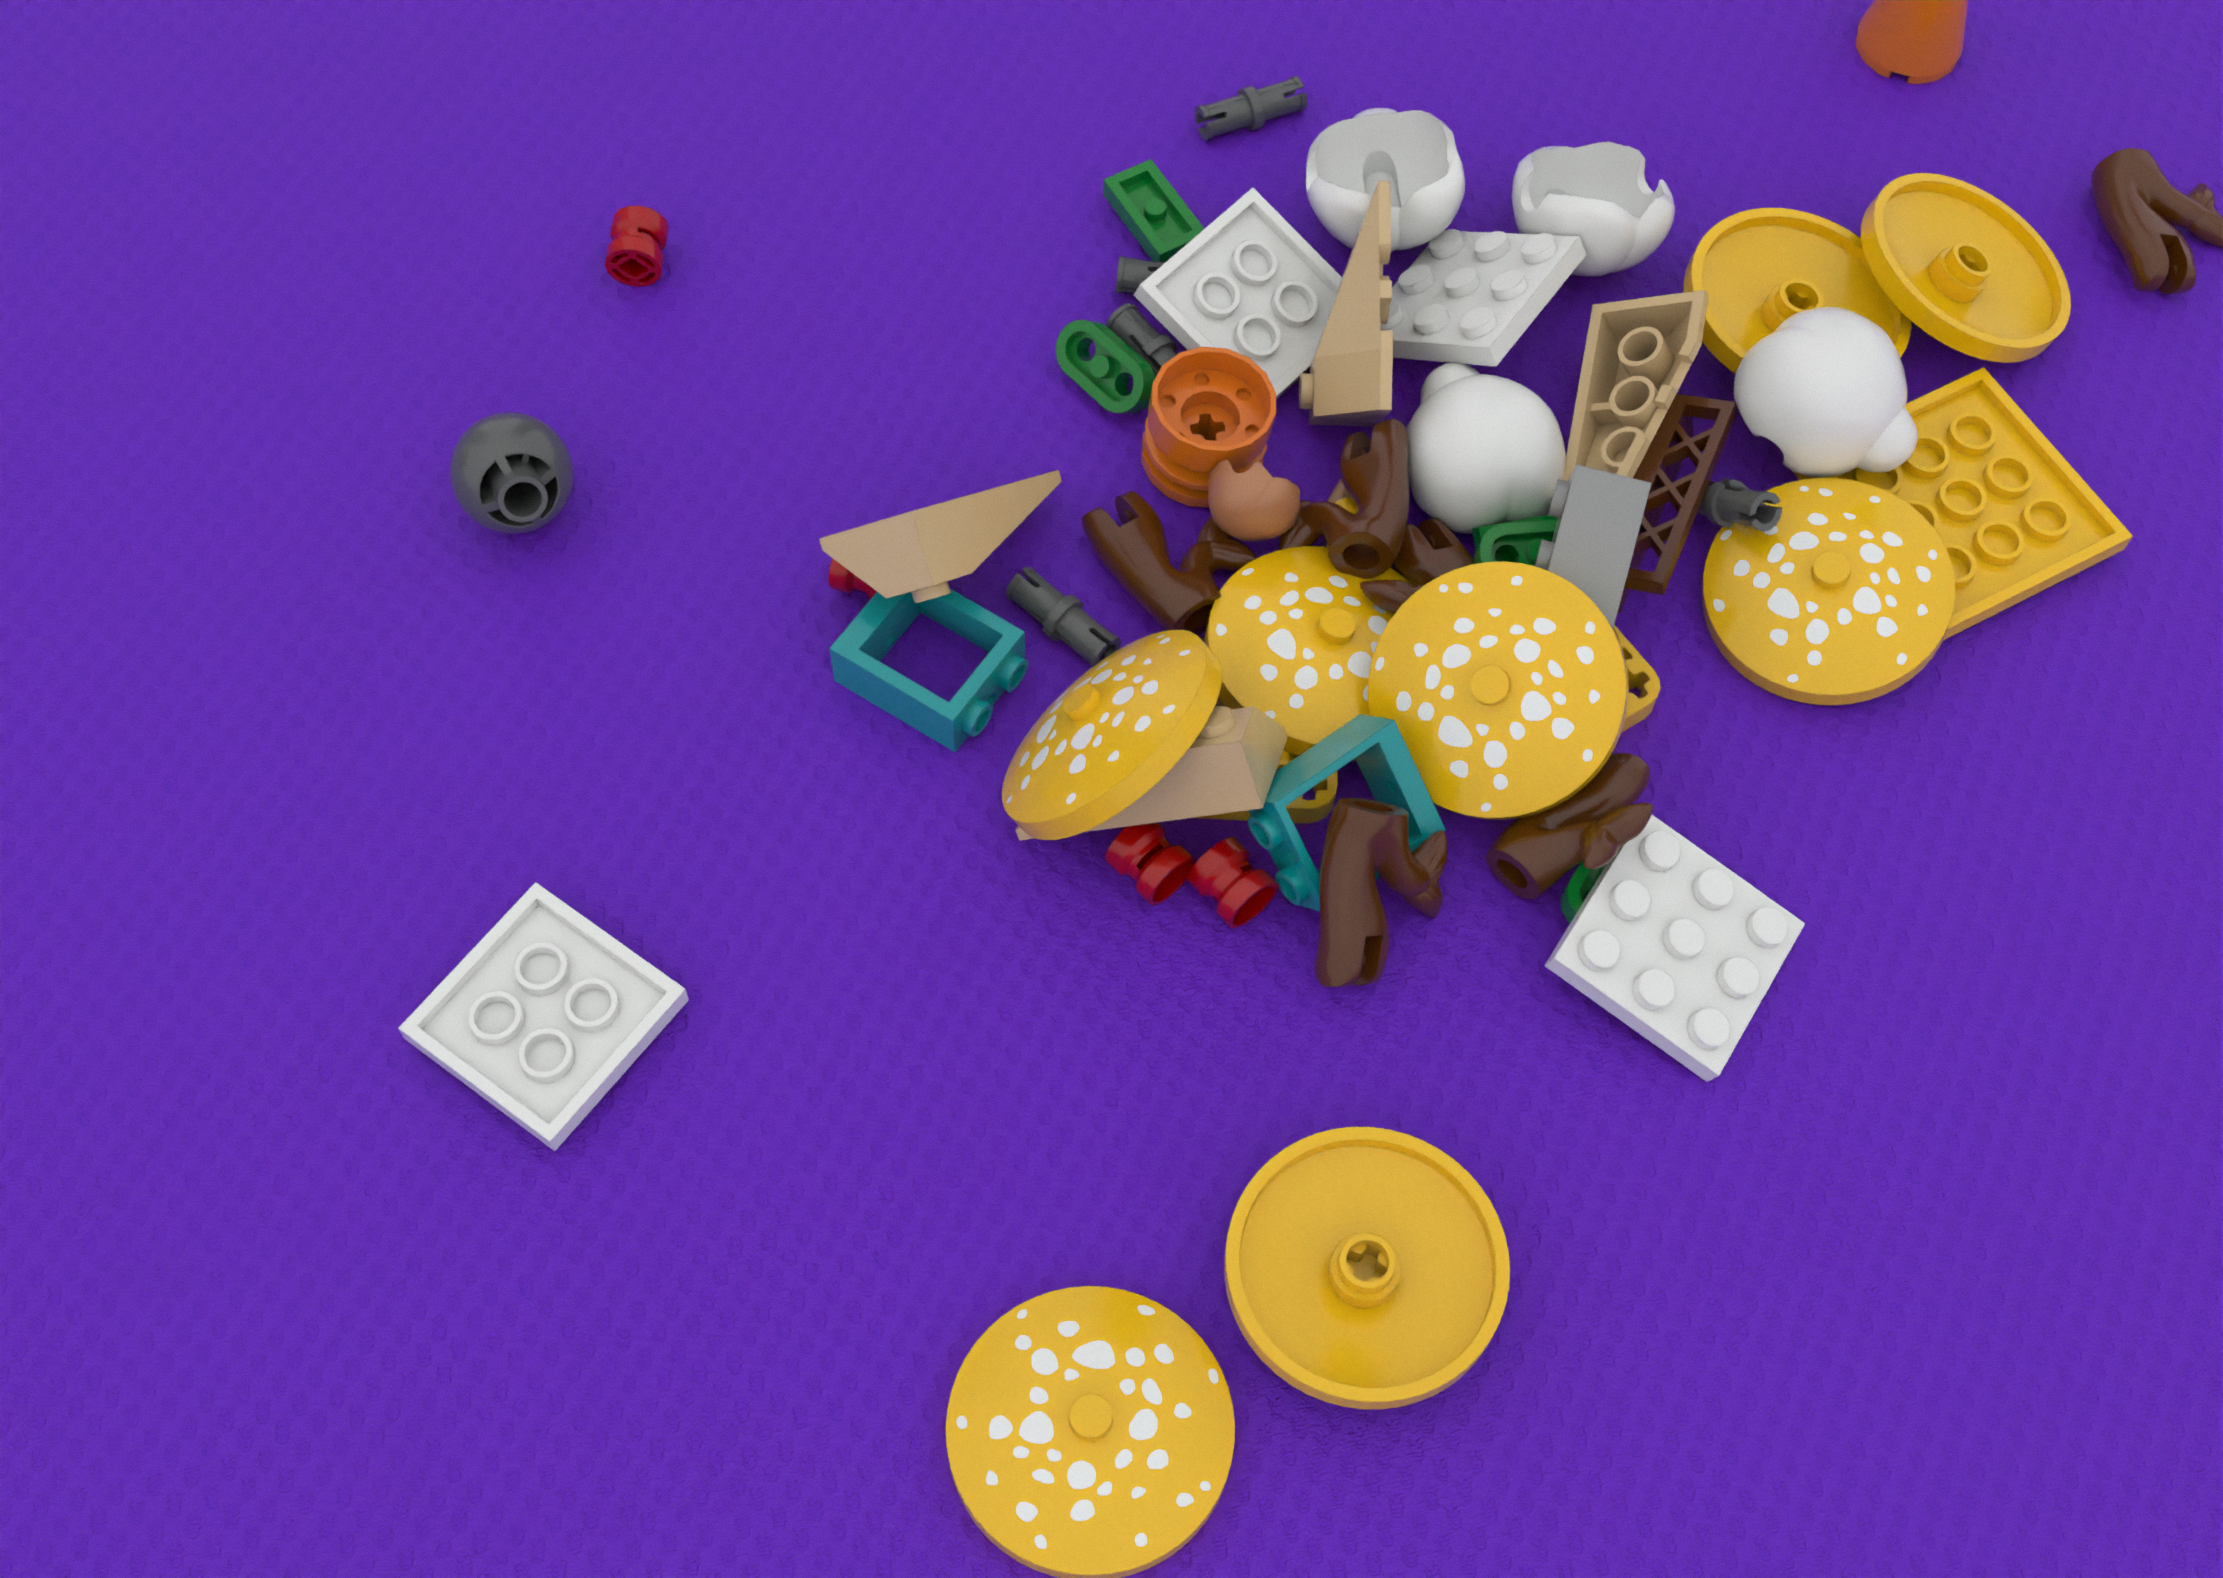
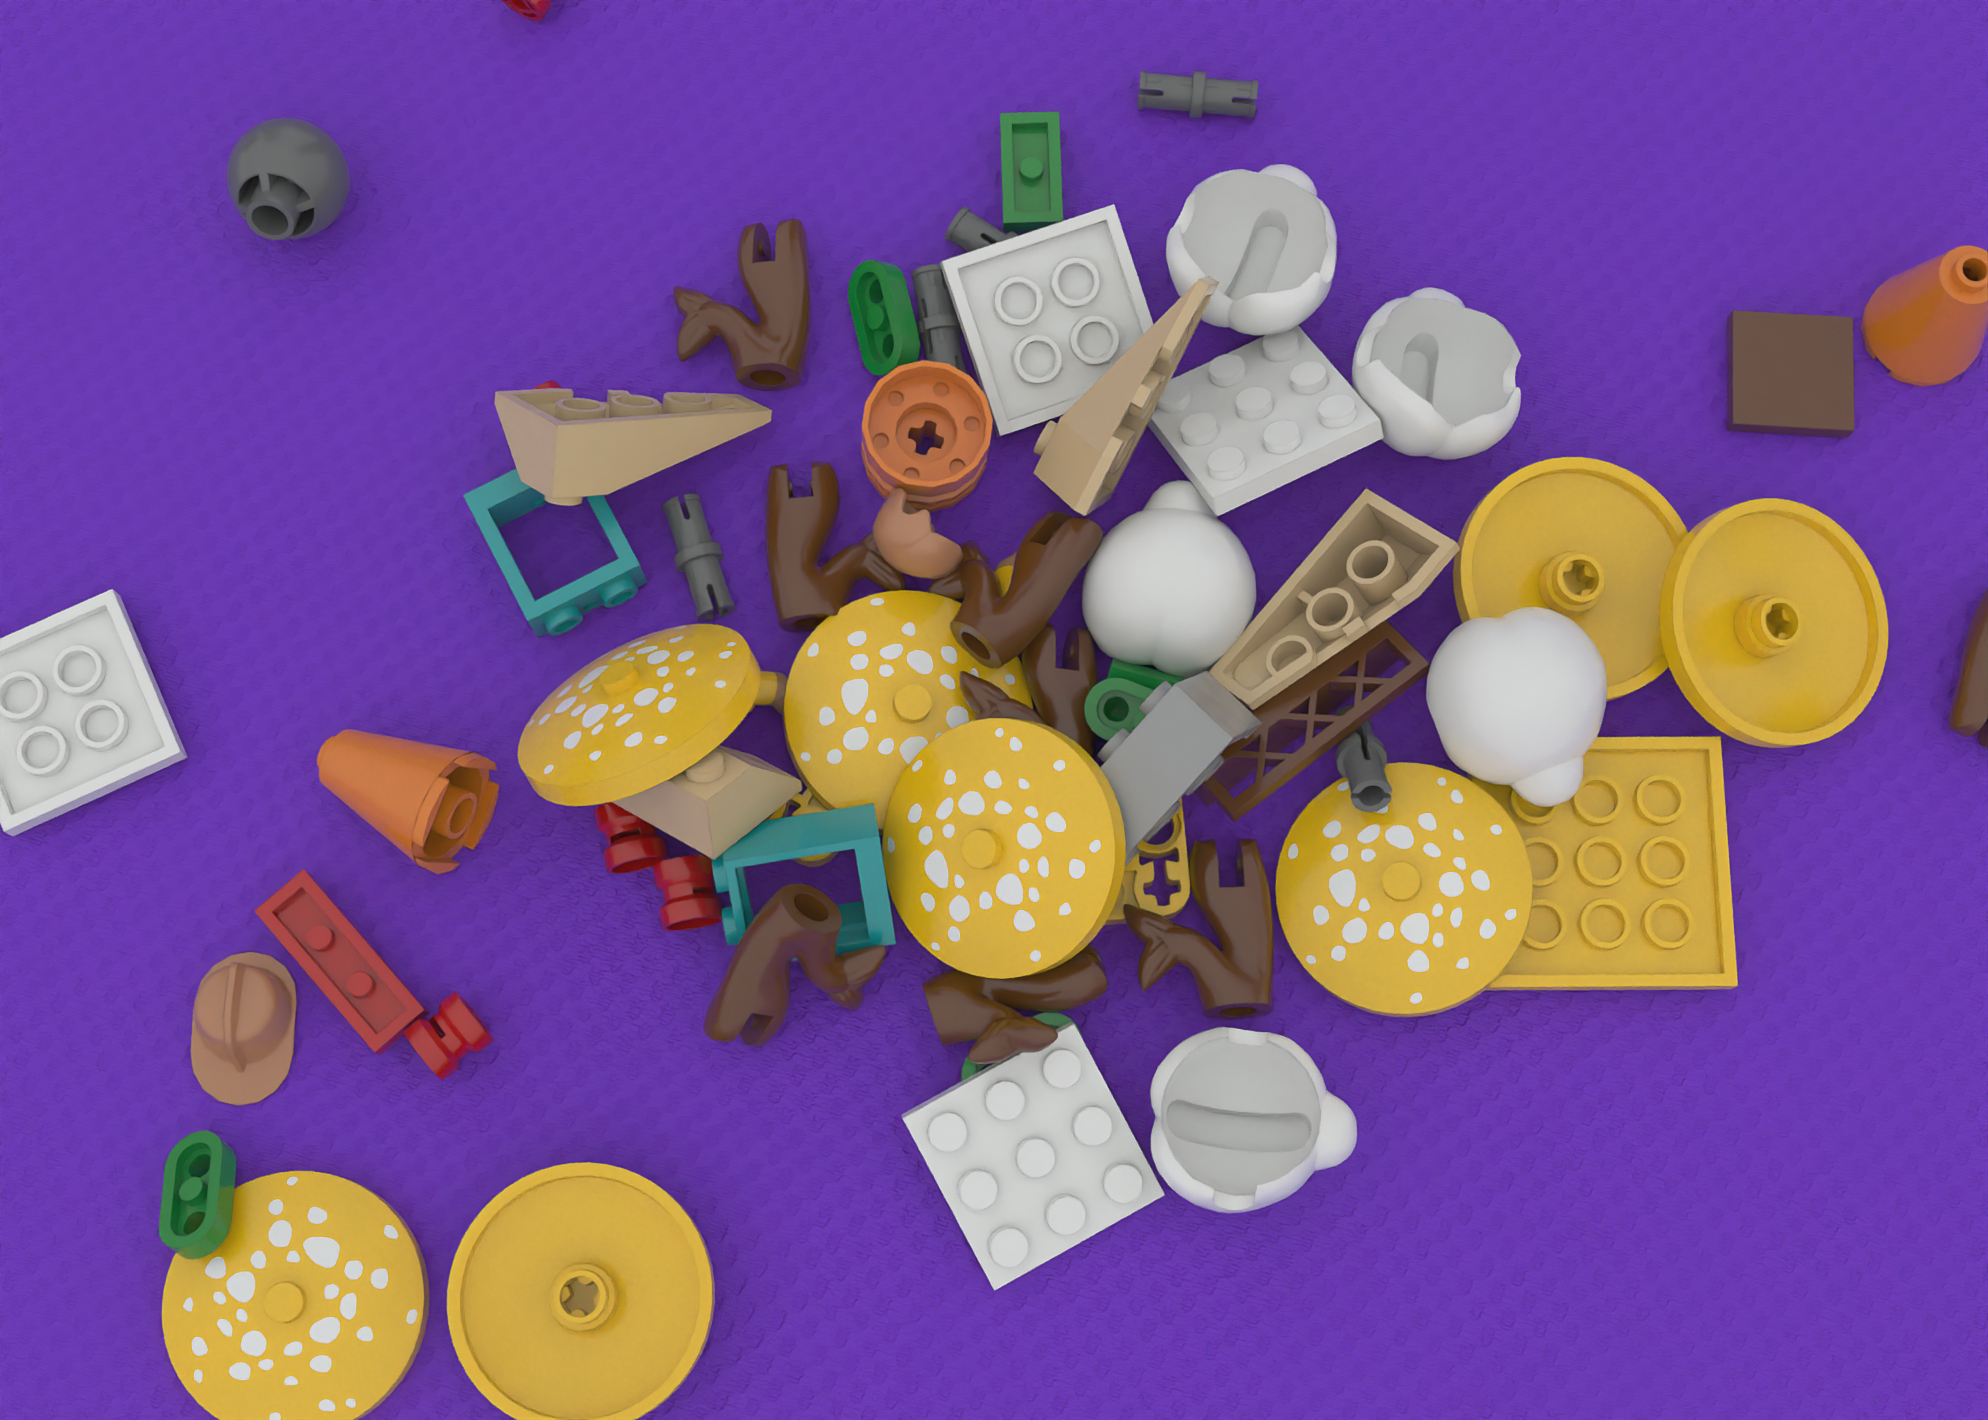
camera: 30 degrees right, 15 degrees up
(885, 1212) = (244, 1028): none -> nougat piece
(925, 914) = (412, 792): none -> orange cone
(943, 1374) = (197, 1203): none -> green plate
(949, 1098) = (341, 961): none -> red plate
(1021, 423) = (775, 349): none -> reddish brown piece
(1092, 1108) = (448, 1035): none -> red wheel
(1717, 693) = (1229, 981): none -> reddish brown piece
(1839, 109) = (1790, 374): none -> reddish brown tile
(1839, 813) = (1244, 1120): none -> white piece

